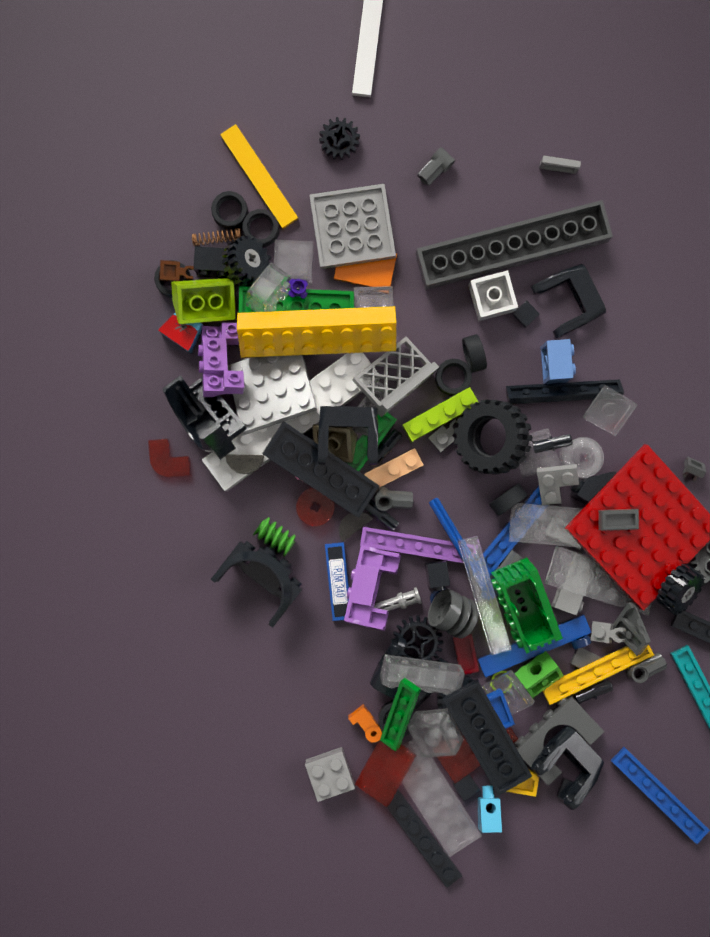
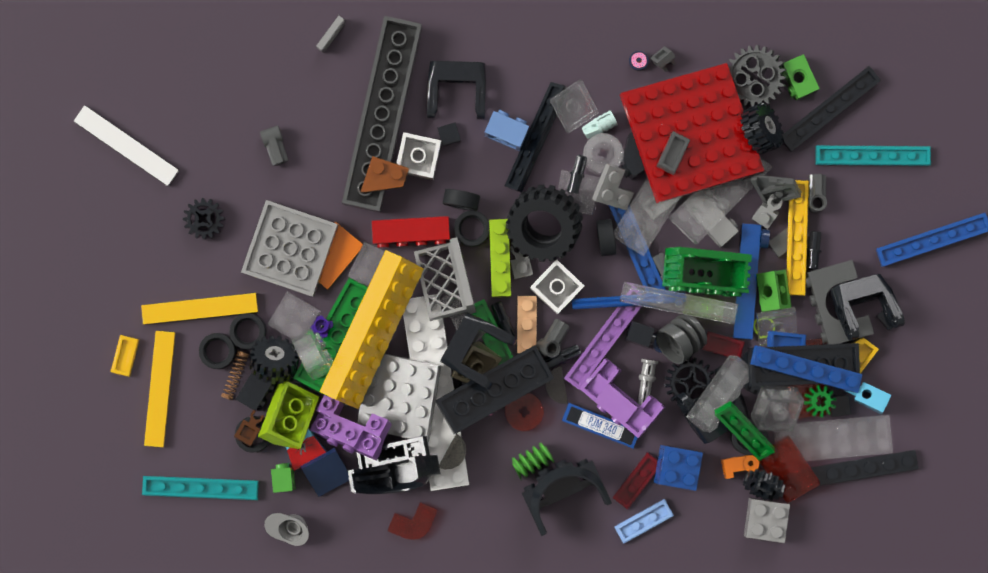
camera: 65 degrees left, 0 degrees up
(103, 258) = (200, 487): none -> teal tile
(105, 352) = (287, 528): none -> light grey piece
(146, 324) = (283, 478): none -> bright green brick
(171, 178) = (159, 389): none -> yellow tile
(171, 358) = (326, 472): none -> dark blue tile
(184, 133) = (125, 355): none -> yellow tile
(273, 663) = (643, 521): none -> light blue tile
(306, 639) = (636, 481): none -> dark red tile
(336, 670) = (678, 467): none -> blue brick
(360, 756) = (764, 485): none -> black gear
(423, 324) = (410, 231): none -> red brick
(441, 478) = (556, 286): none -> white brick
(460, 272) = (384, 176): none -> dark orange wing
(463, 774) = (813, 399): none -> green gear
(484, 742) = (806, 369): none -> blue plate
(607, 443) = (600, 125): none -> light aqua hinge
(679, 447) = (638, 60): none -> tile

